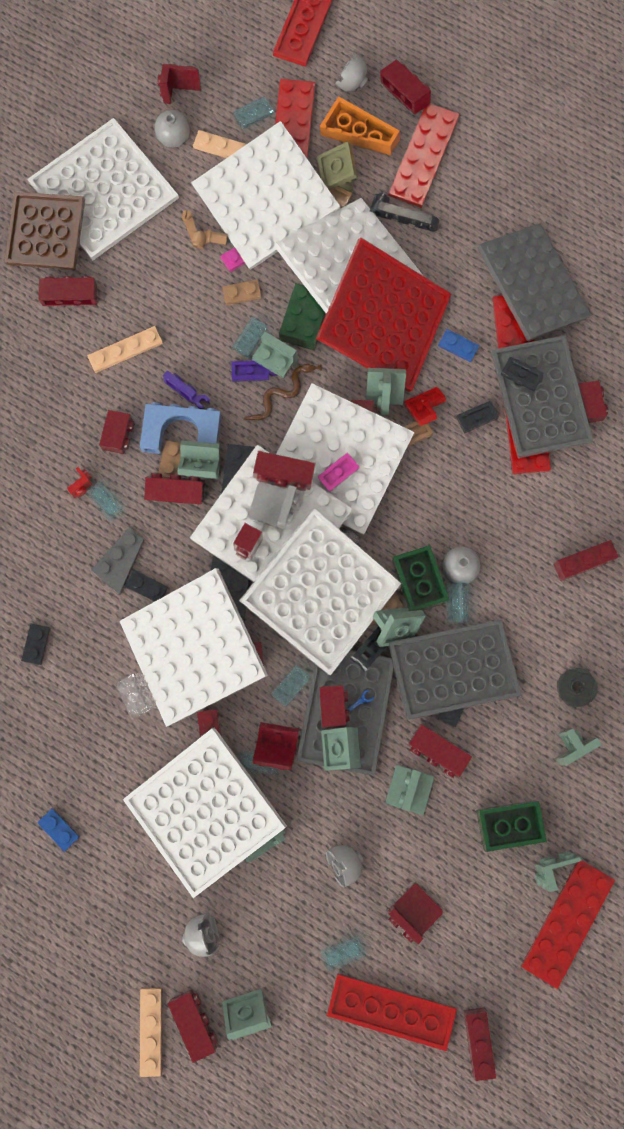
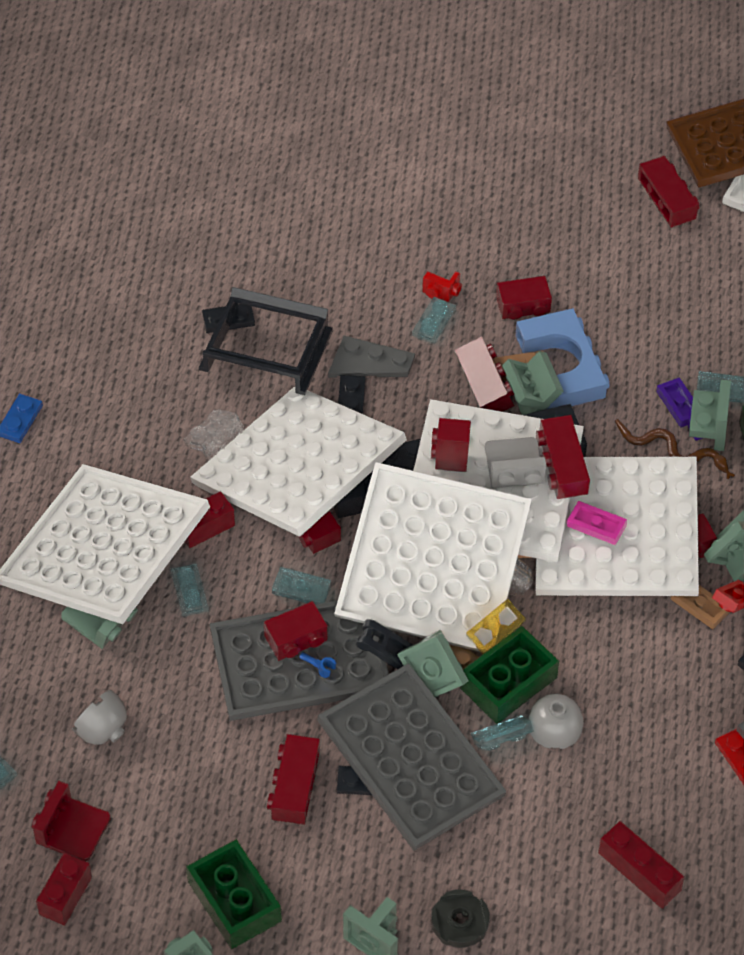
camera: 65 degrees right, 25 degrees down
(57, 605) = (313, 351): none -> black piece
(125, 349) = (632, 272): light nougat plate -> none
(186, 391) = (616, 348): dark purple plate -> none
(275, 746) = (220, 595): dark red bracket -> none
(341, 748) = (248, 661): sand green bracket -> none
(390, 574) = (495, 626): none -> clear yellow piece
(409, 790) = (229, 767): sand green bracket -> none
(463, 936) = (64, 889): none -> dark red brick

